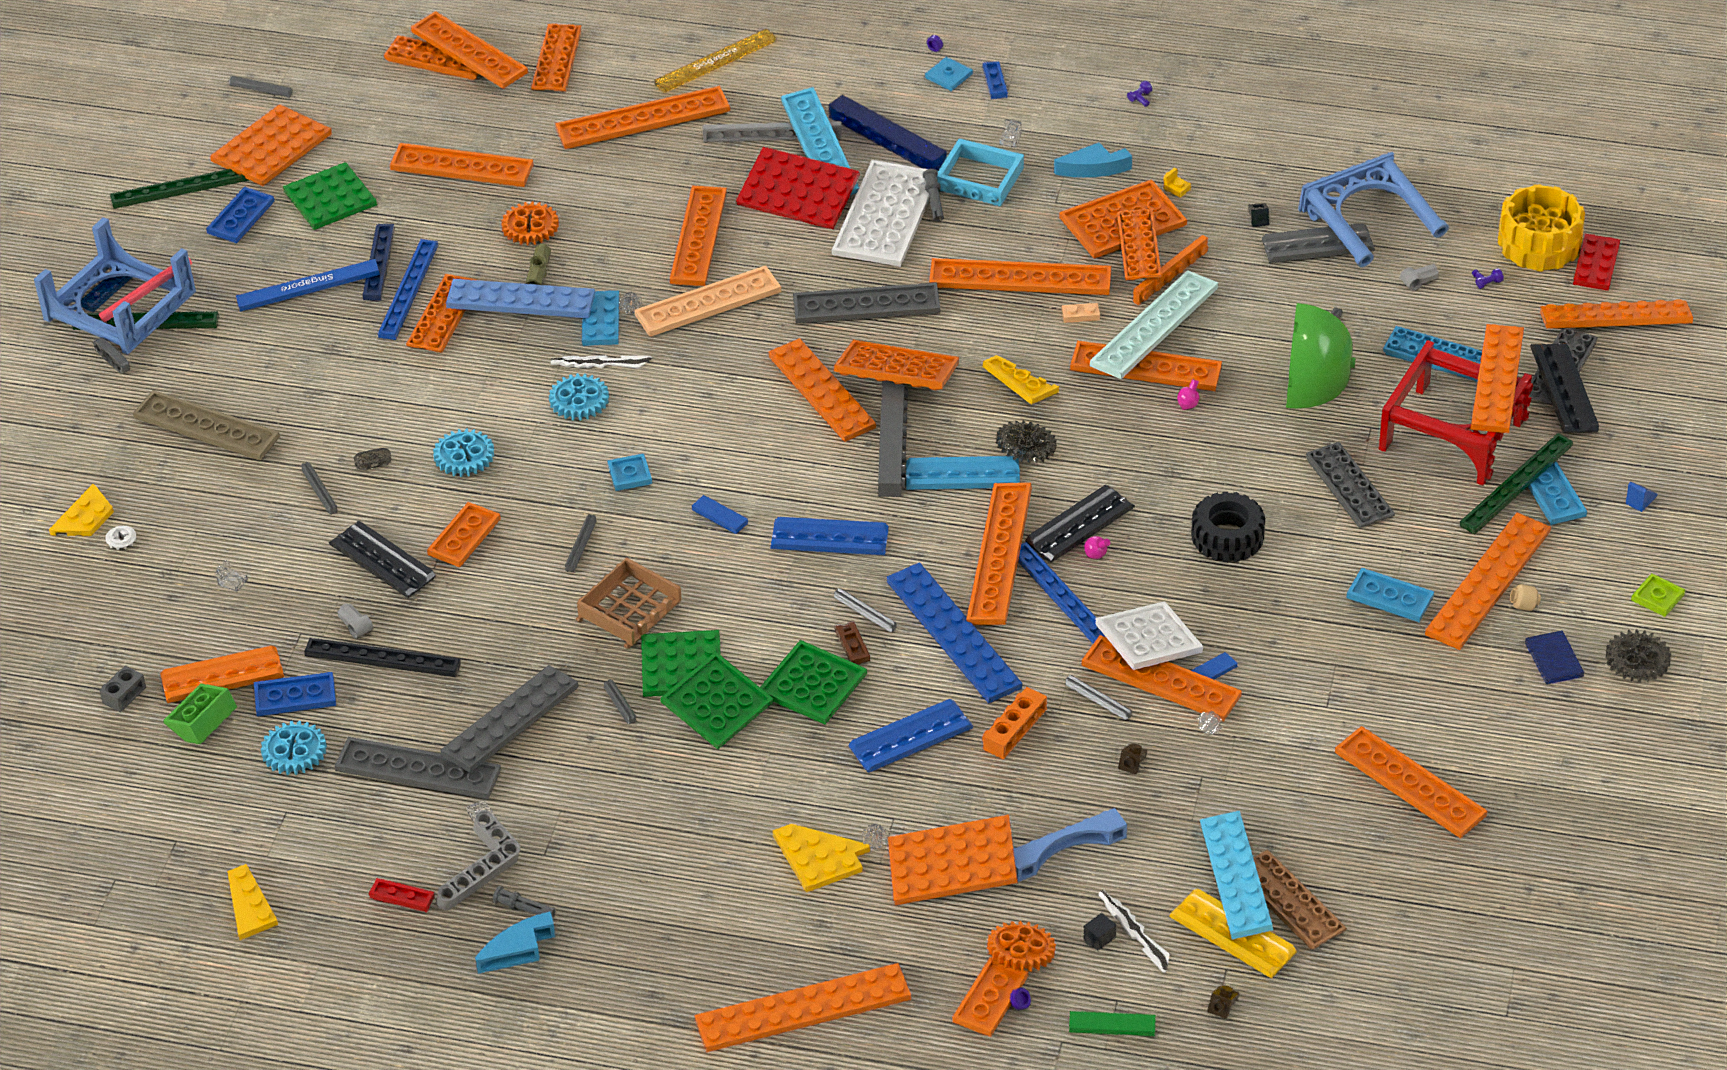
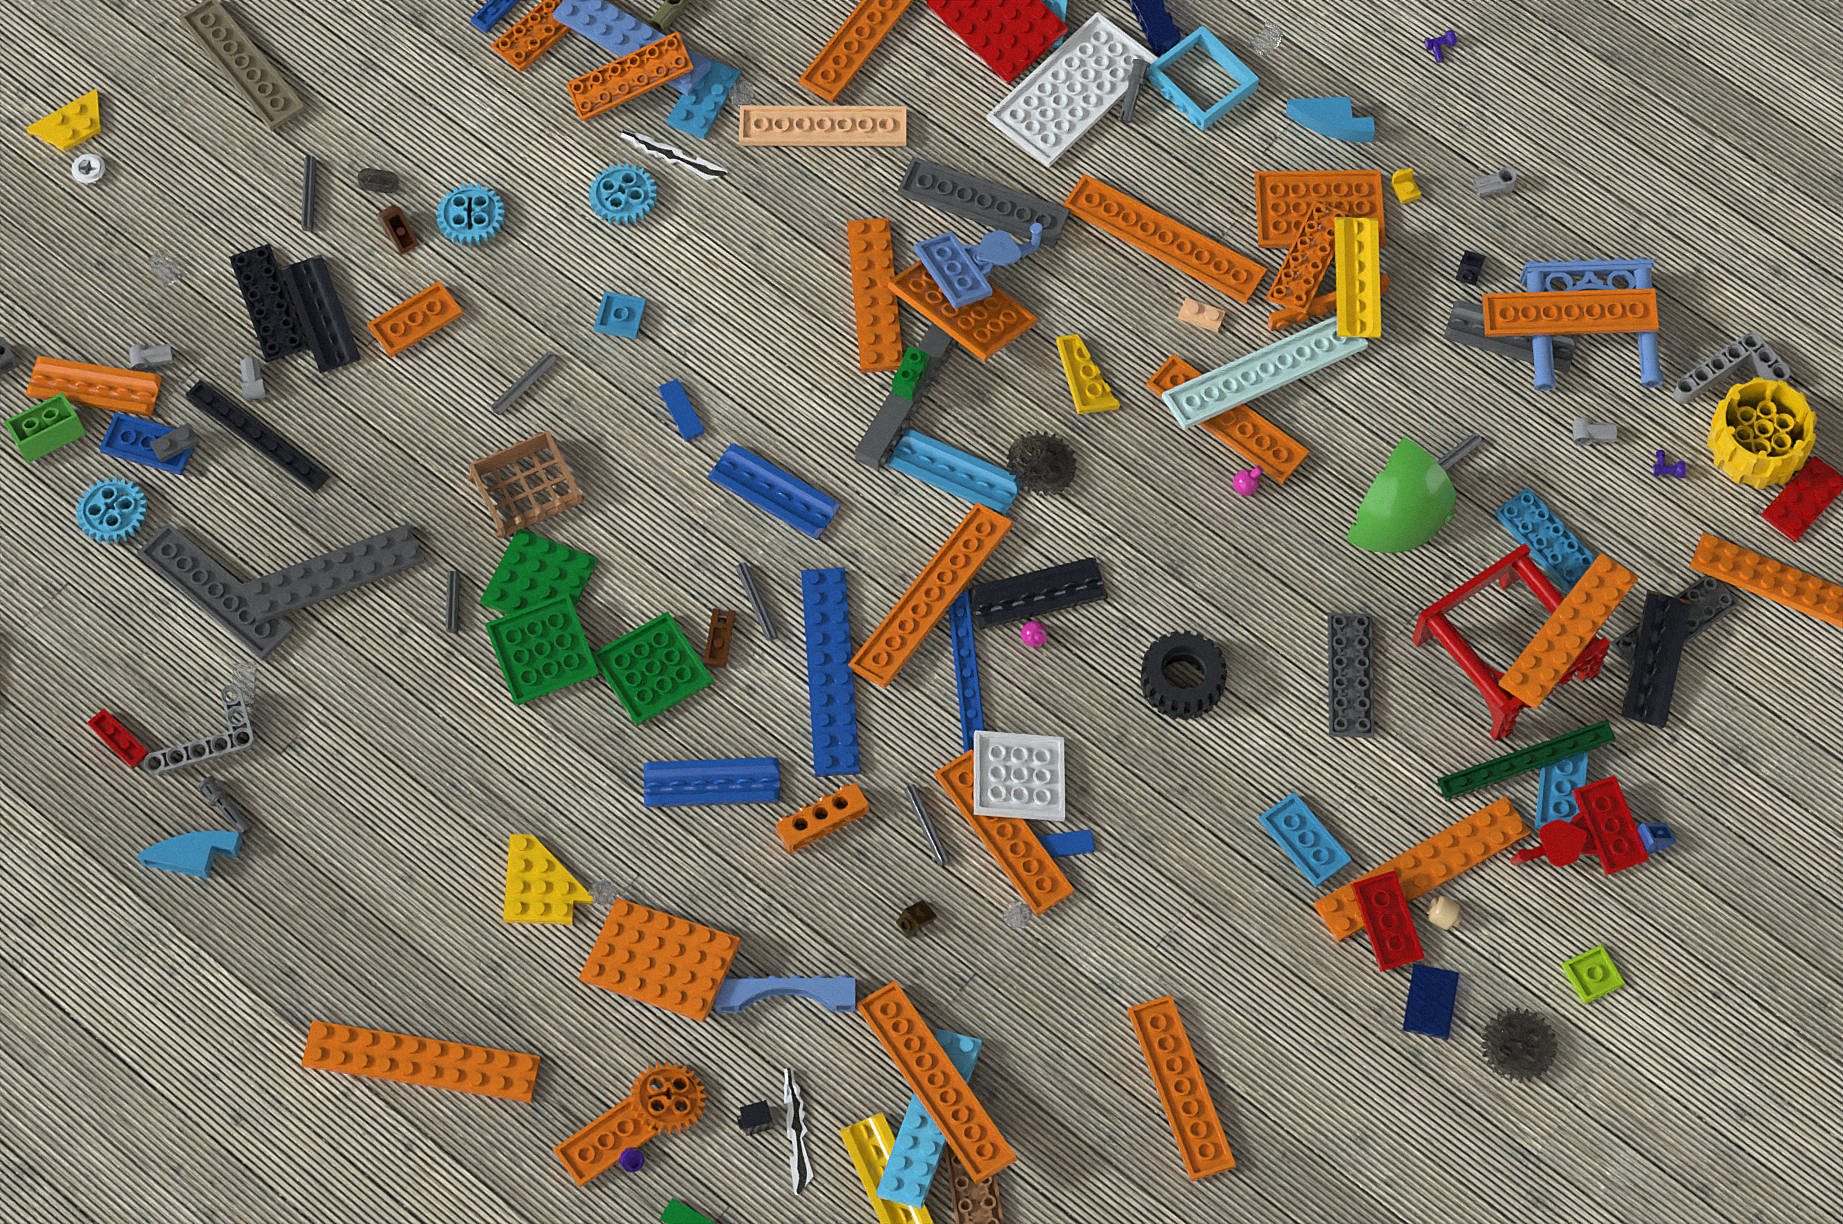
camera: 25 degrees right, 20 degrees up
(255, 639) = (145, 357): none -> light grey piece
(319, 681) = (174, 442): none -> dark grey plate
(332, 569) = (268, 303): none -> black plate
(409, 481) = (397, 228): none -> reddish brown slope
(536, 319) = (629, 76): none -> orange plate
(887, 340) = (963, 268): none -> medium blue plate
(890, 416) = (910, 373): none -> green brick
(1185, 241) = (1357, 277): none -> yellow plate
(1227, 844) = (936, 1082): none -> orange plate
(1242, 157) = (1493, 183): none -> light grey piece
(1355, 203) = (1570, 312): none -> orange plate
(1489, 616) = (1387, 921): none -> red plate
(1492, 190) = (1728, 365): none -> light grey beam
(1597, 503) = (1599, 829): none -> red plate

